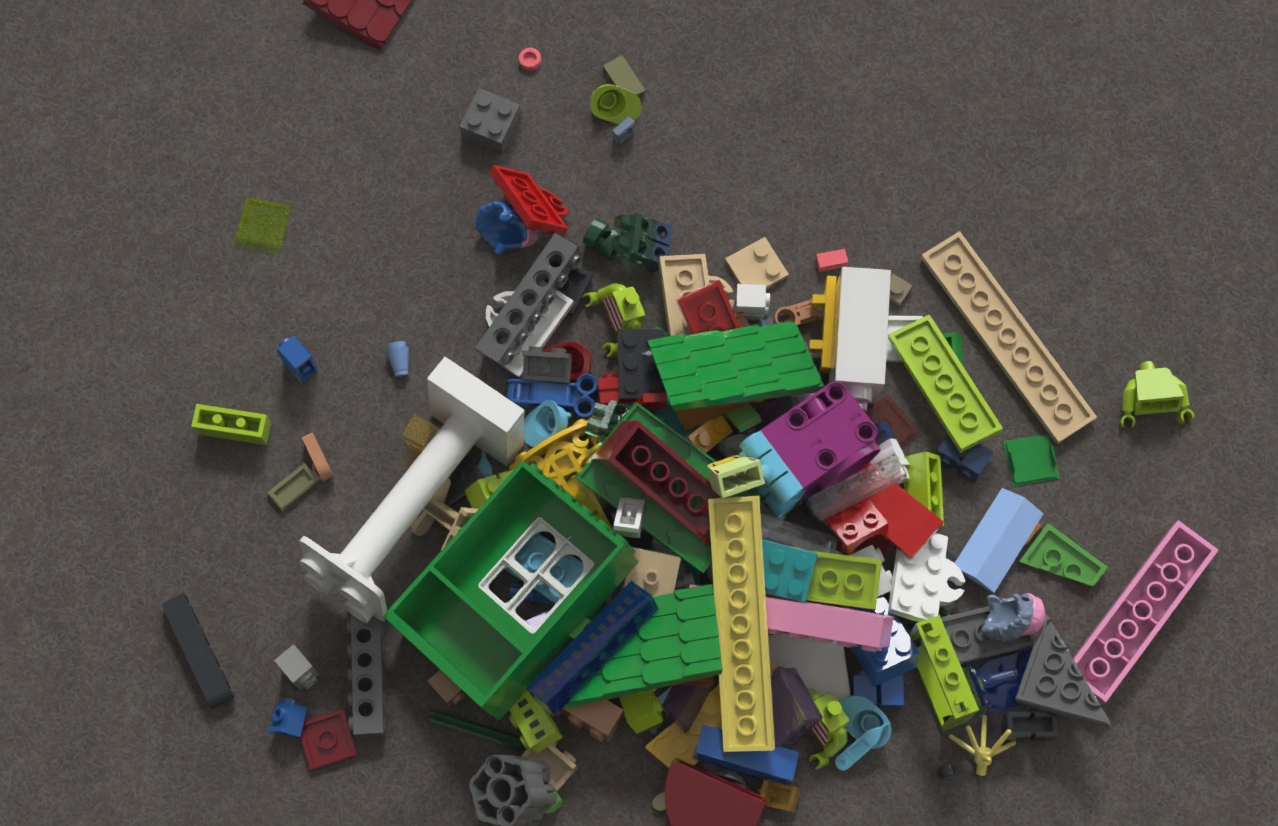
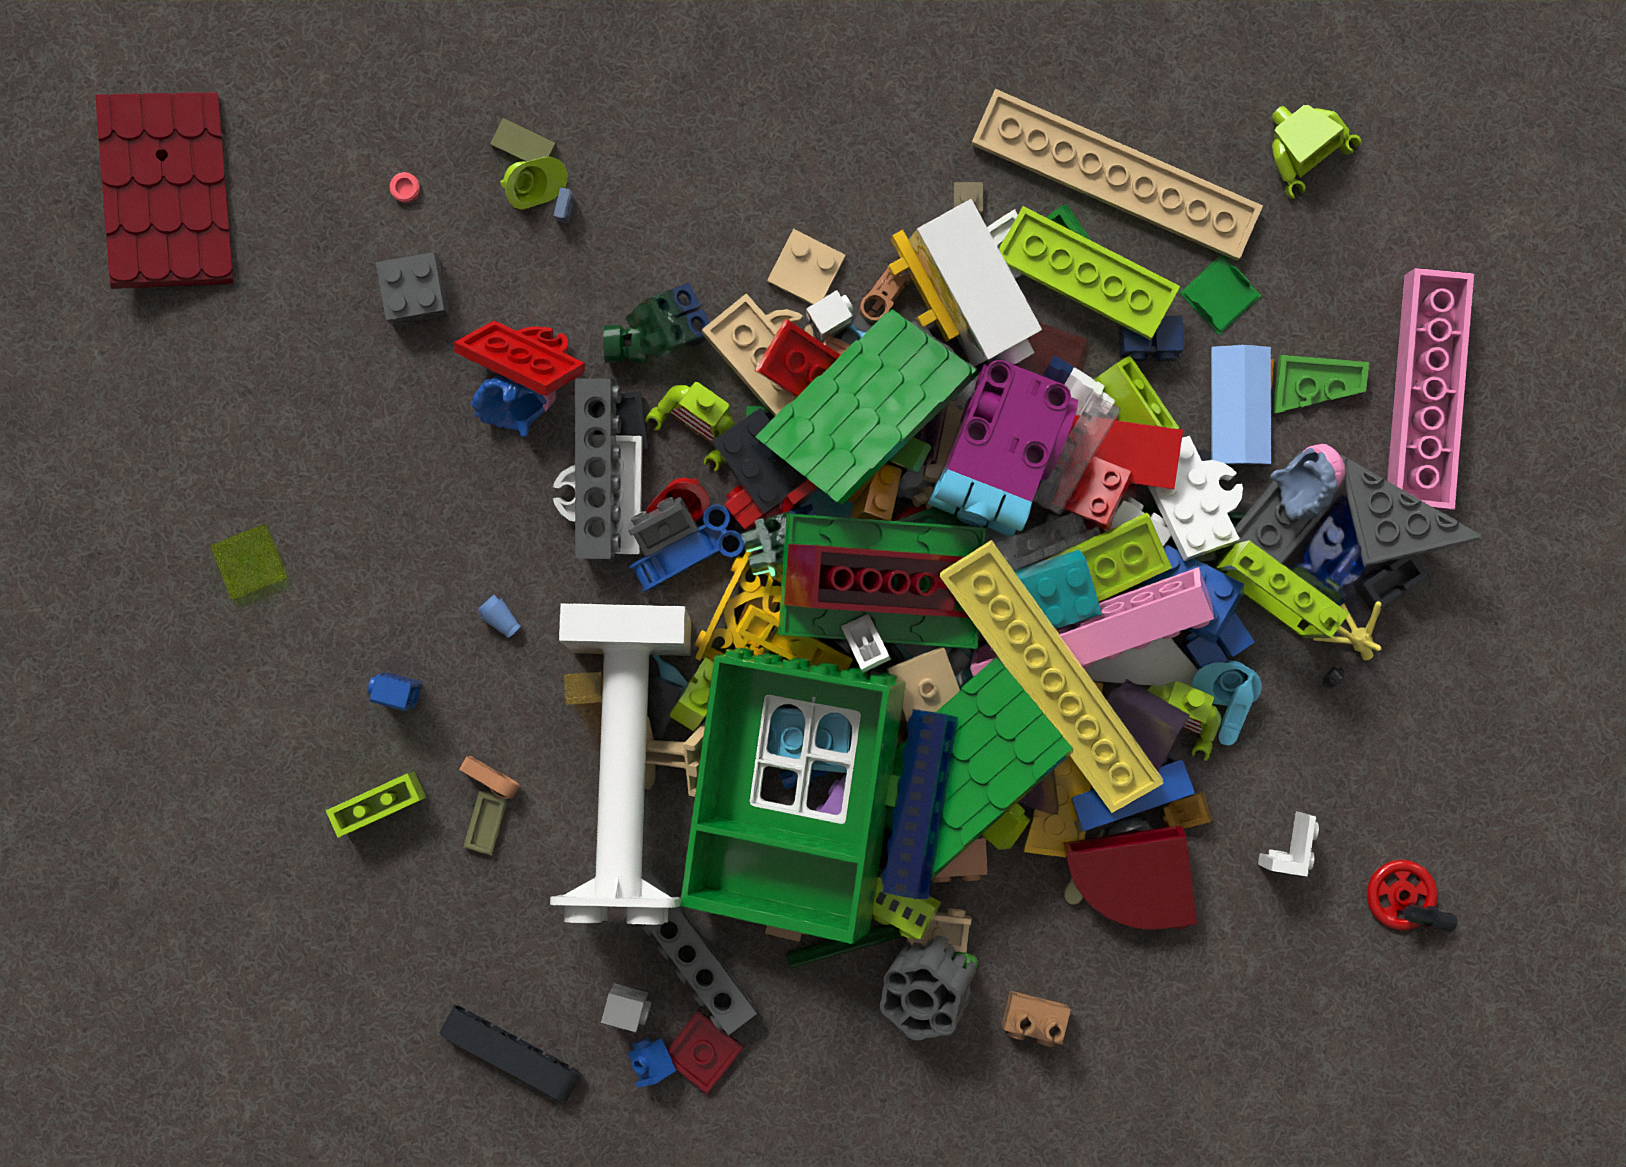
camera: 40 degrees left, 15 degrees up
(544, 422) = (701, 587): medium azure piece -> none
(730, 475) = (951, 533): yellowish green torso -> none
(831, 260) = (880, 209): coral piece -> none

